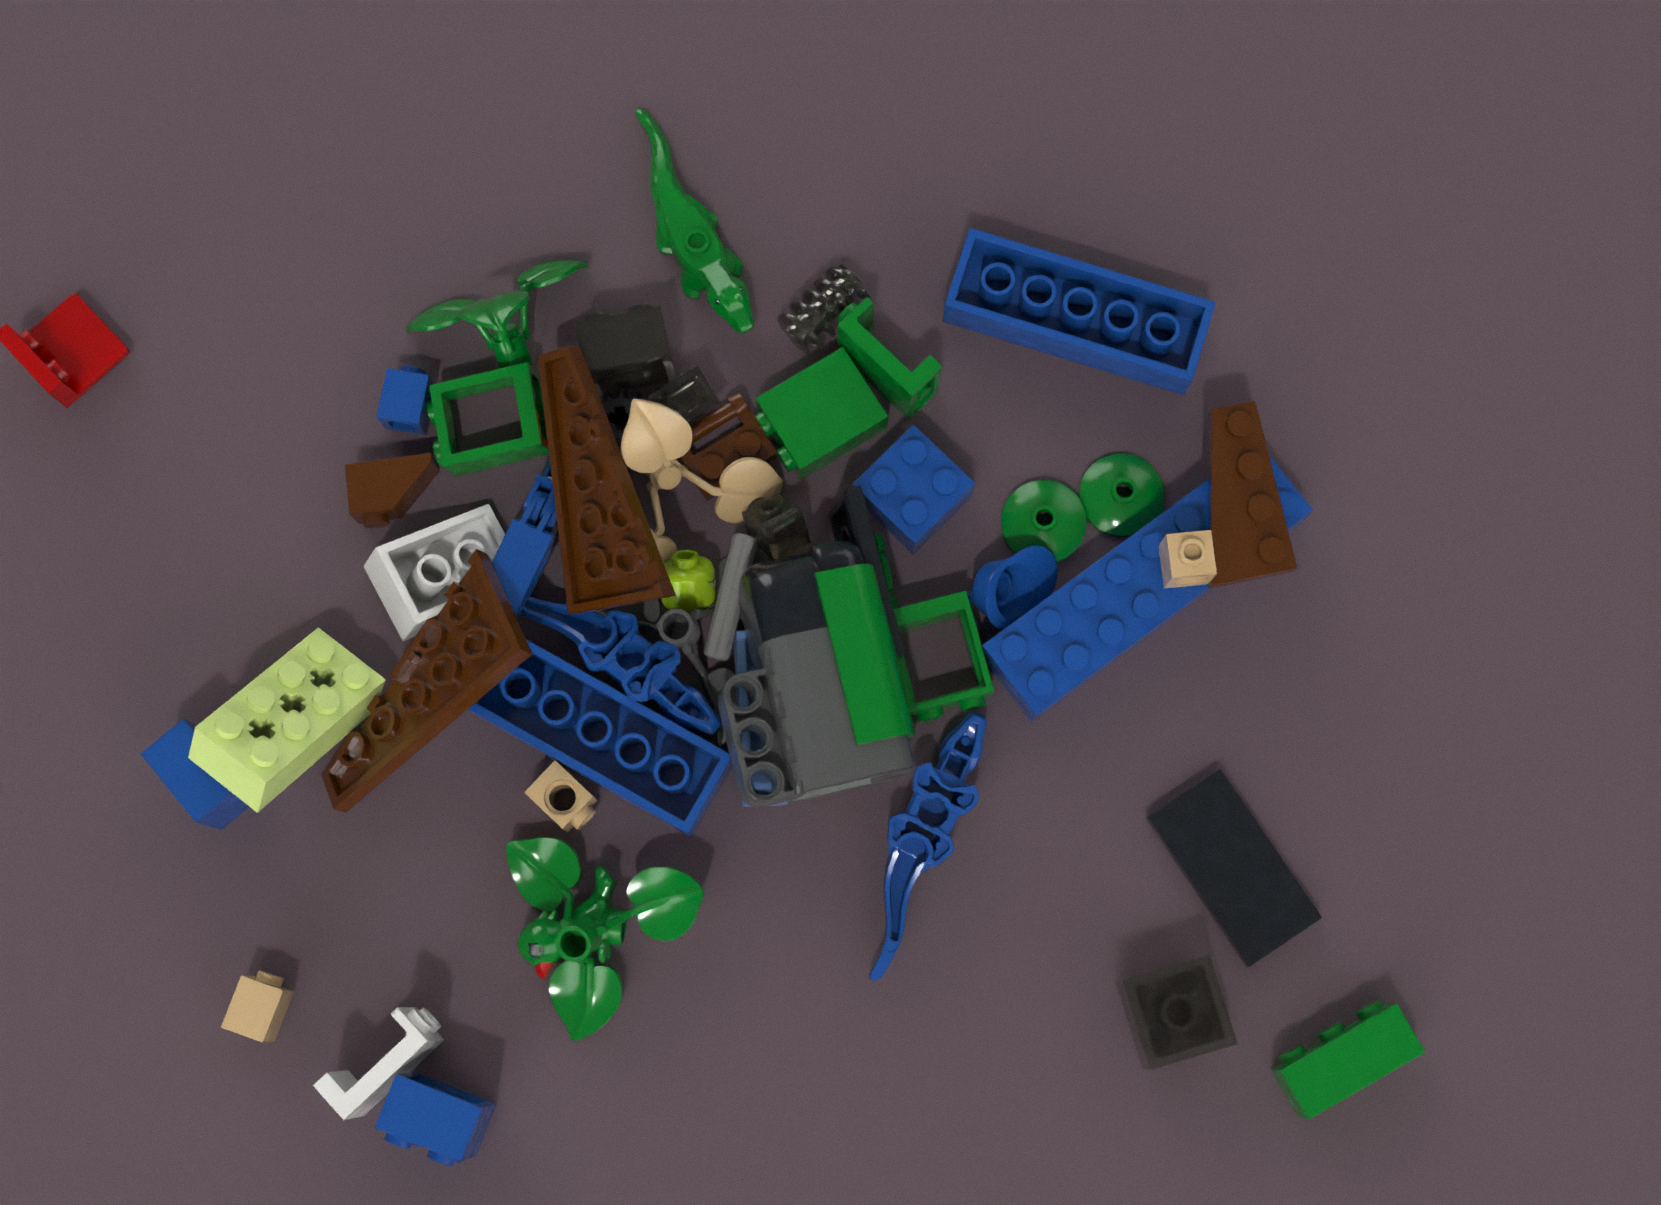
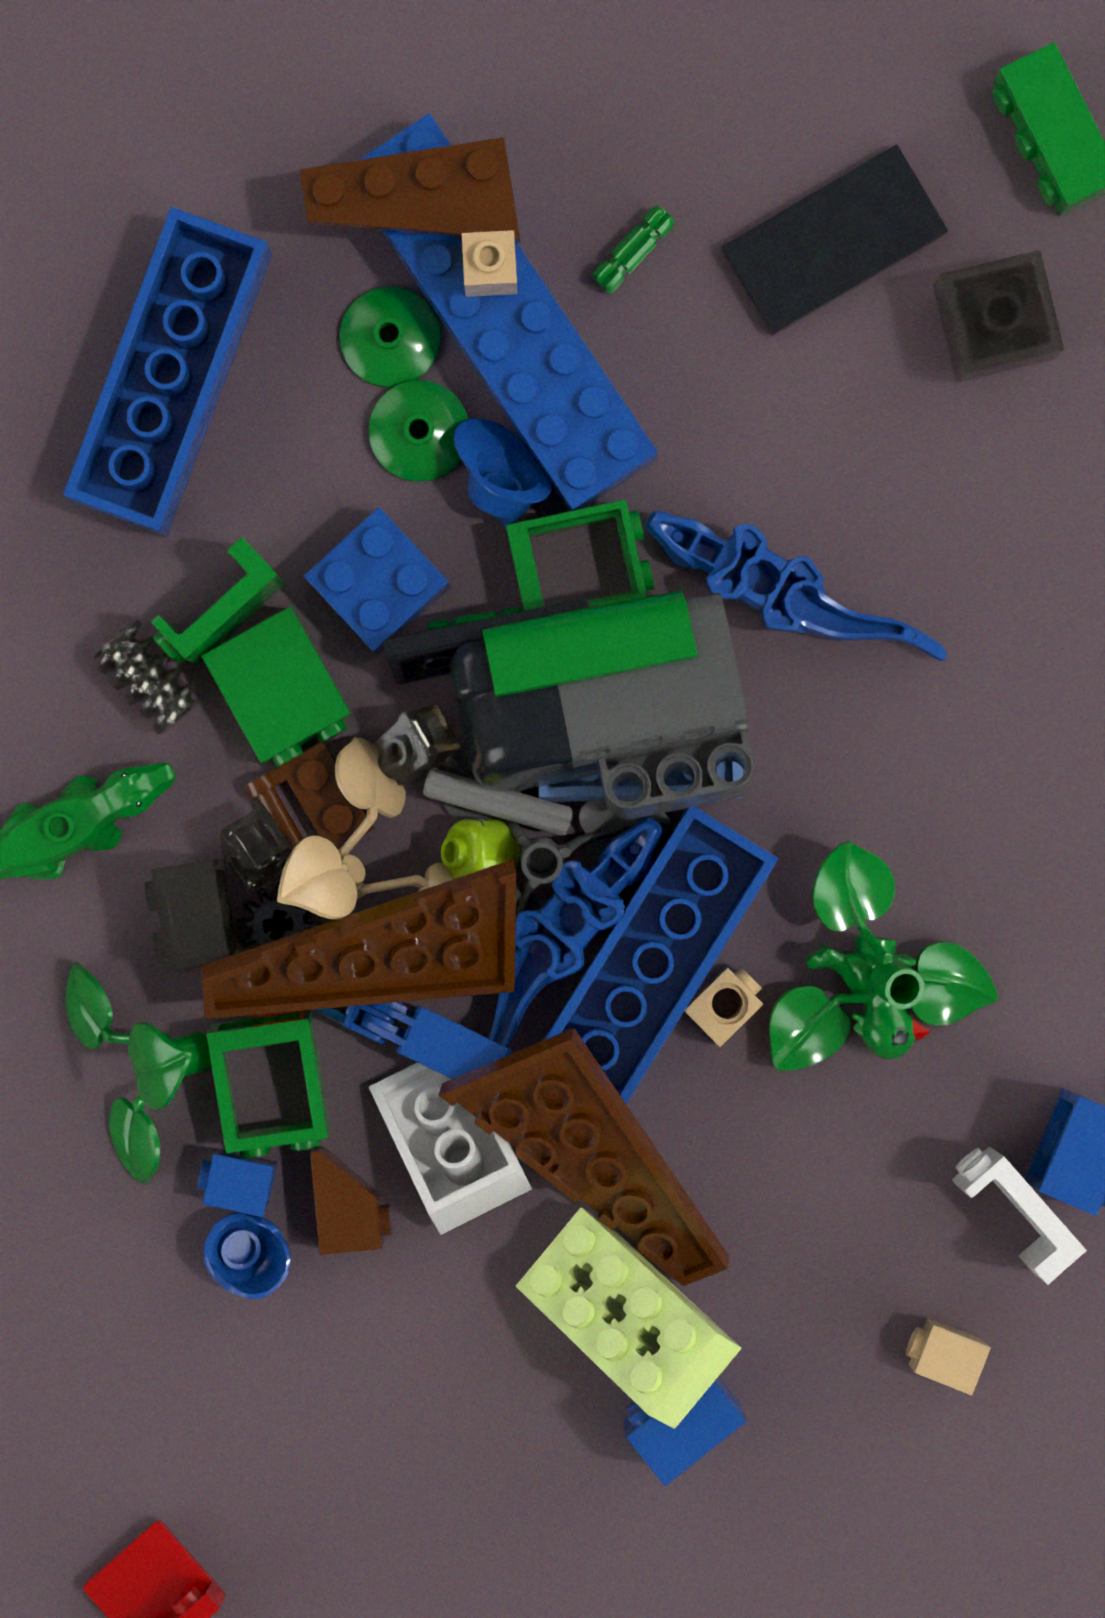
camera: 90 degrees left, 10 degrees up
(344, 407) = (247, 1255): none -> blue hair
(1211, 693) = (633, 249): none -> green axle

